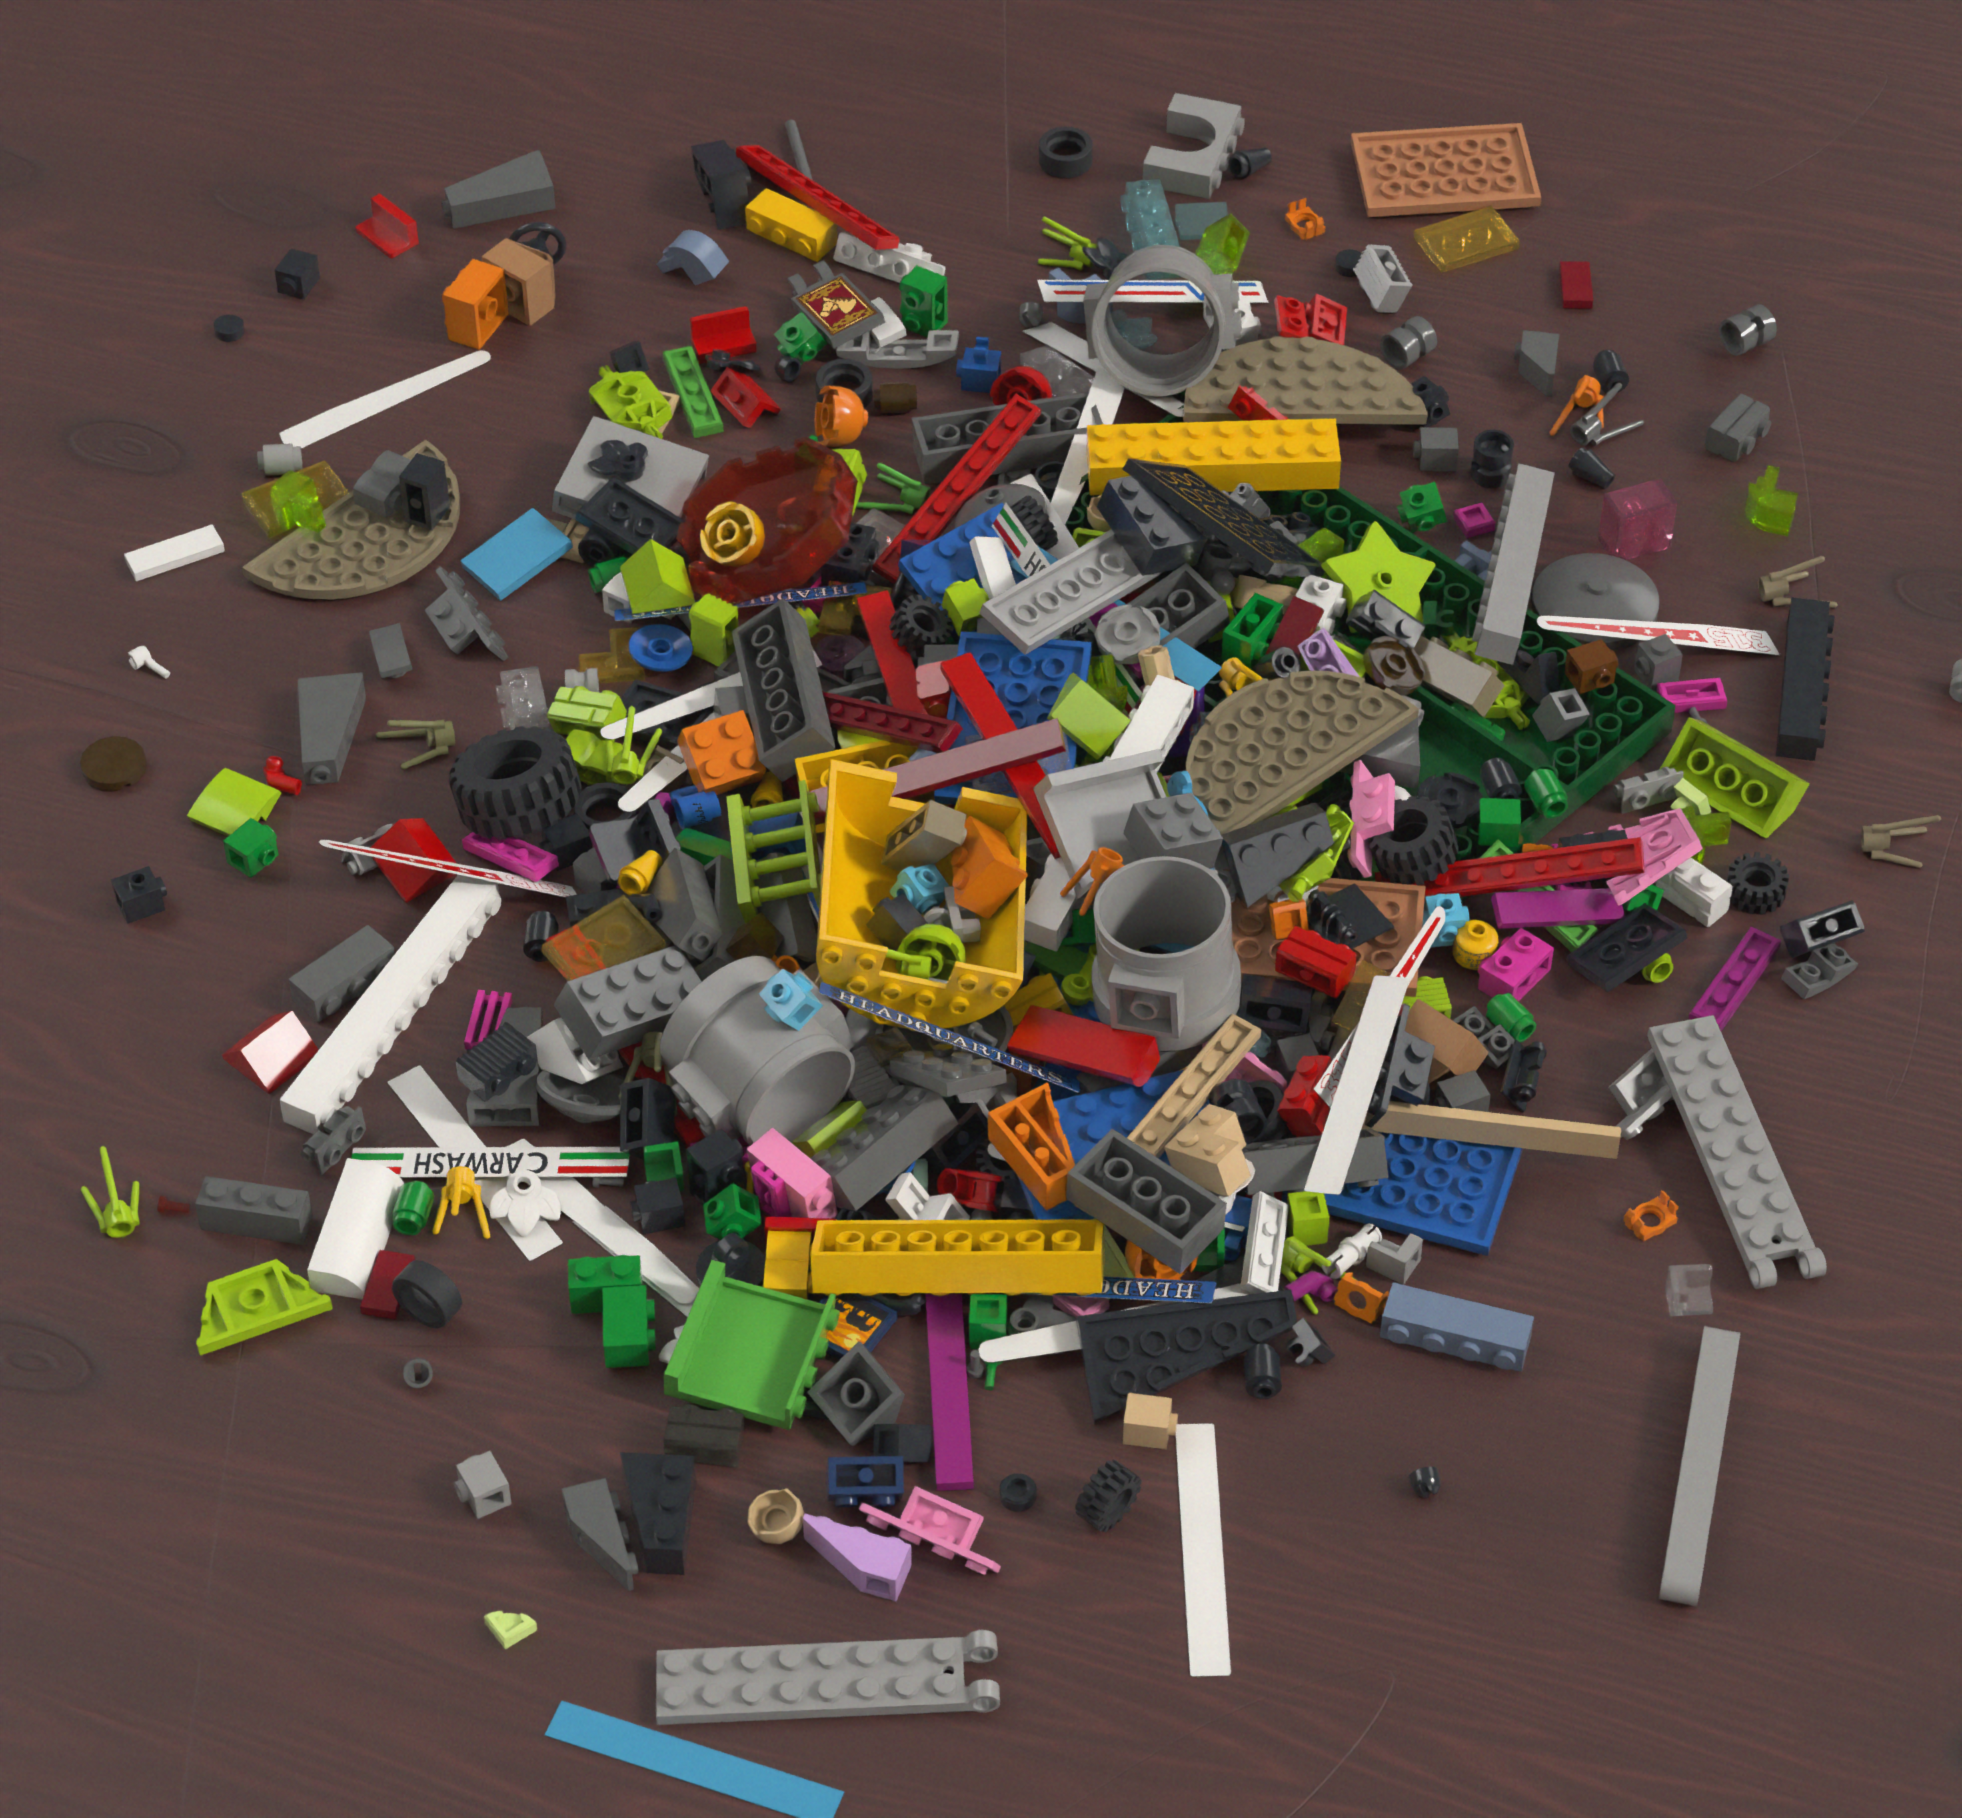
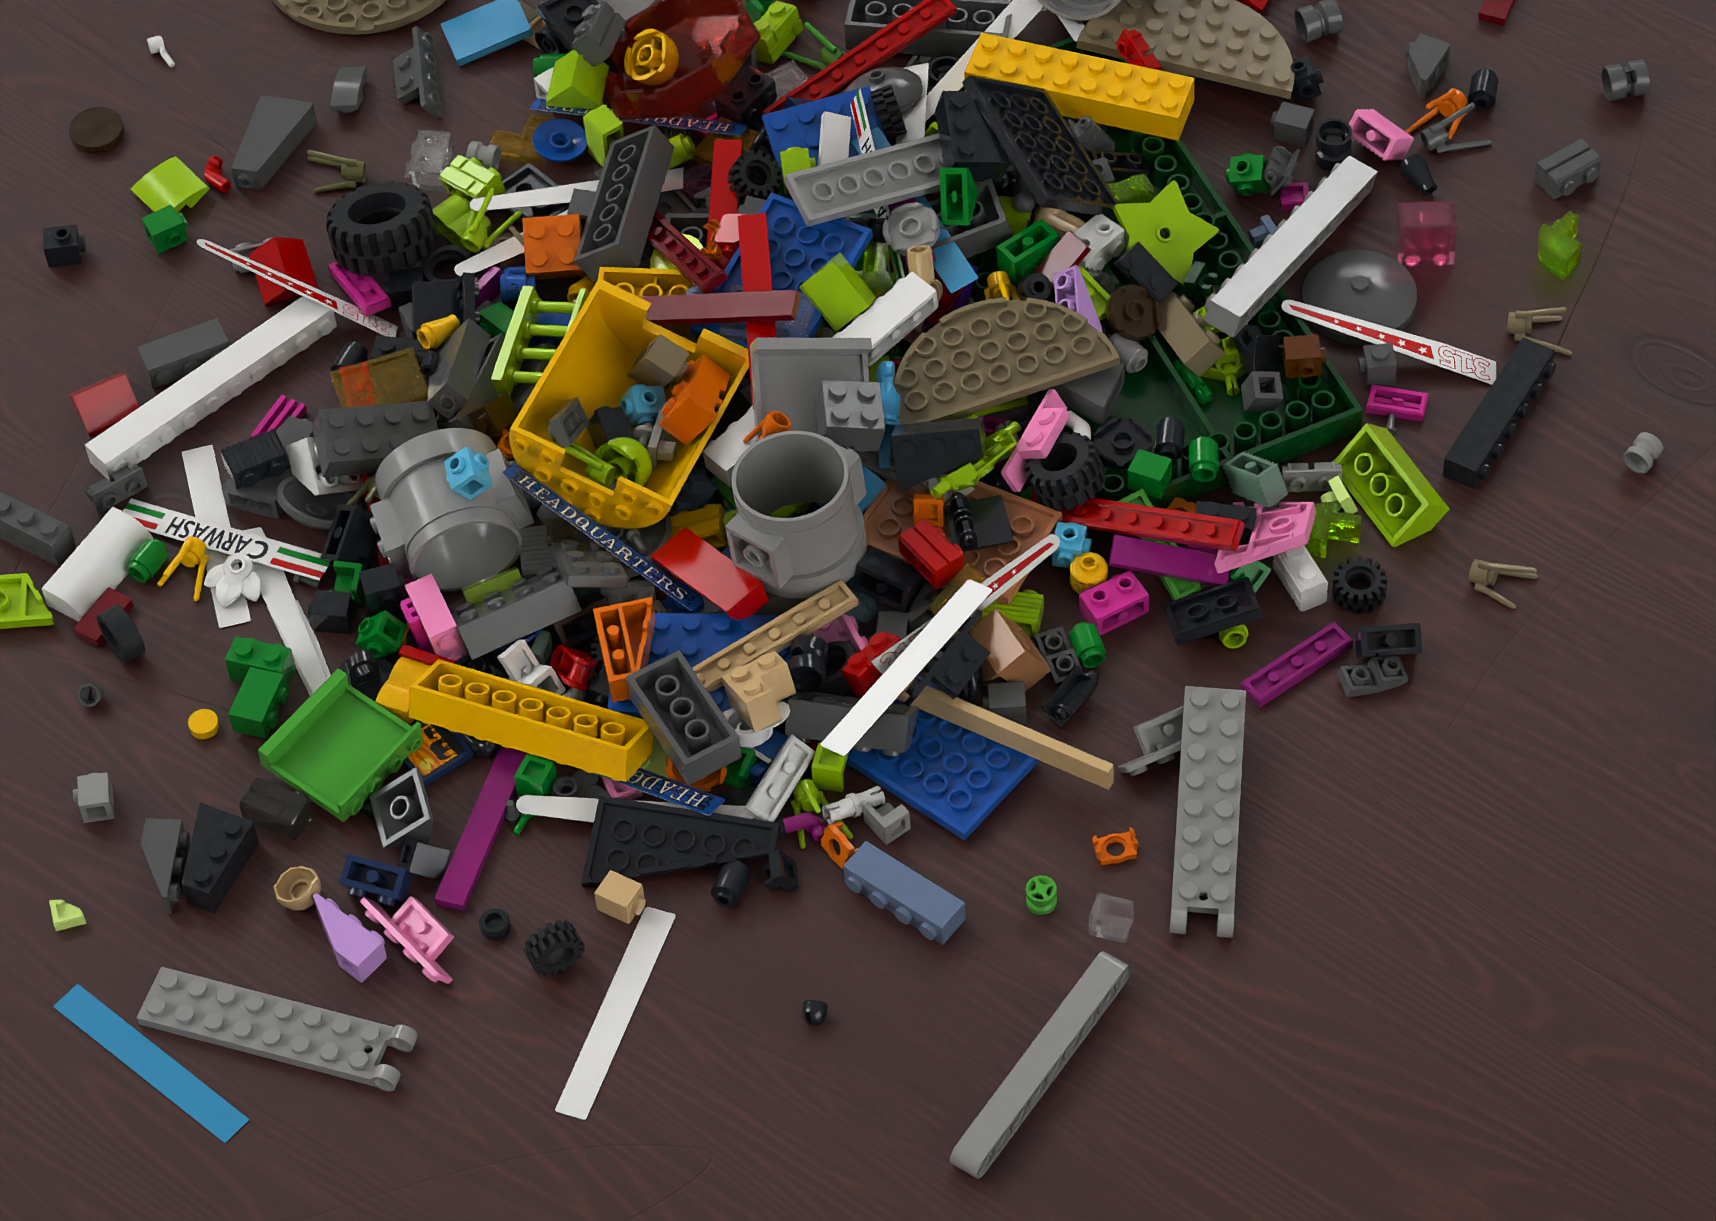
camera: 25 degrees right, 5 degrees up
(567, 1369) = (203, 724): none -> yellow tile
(665, 521) = (598, 33): none -> dark grey brick
(862, 922) = (568, 423): none -> dark grey plate
(906, 694) = (713, 251): none -> orange piece
(1164, 587) = (957, 195): none -> green slope
(1454, 493) = (1280, 167): none -> dark grey hinge
(1536, 437) = (1380, 135): none -> bright pink brick
(1598, 1280) = (1043, 887): none -> bright green wheel
(1606, 801) = (1255, 479): none -> sand green brick

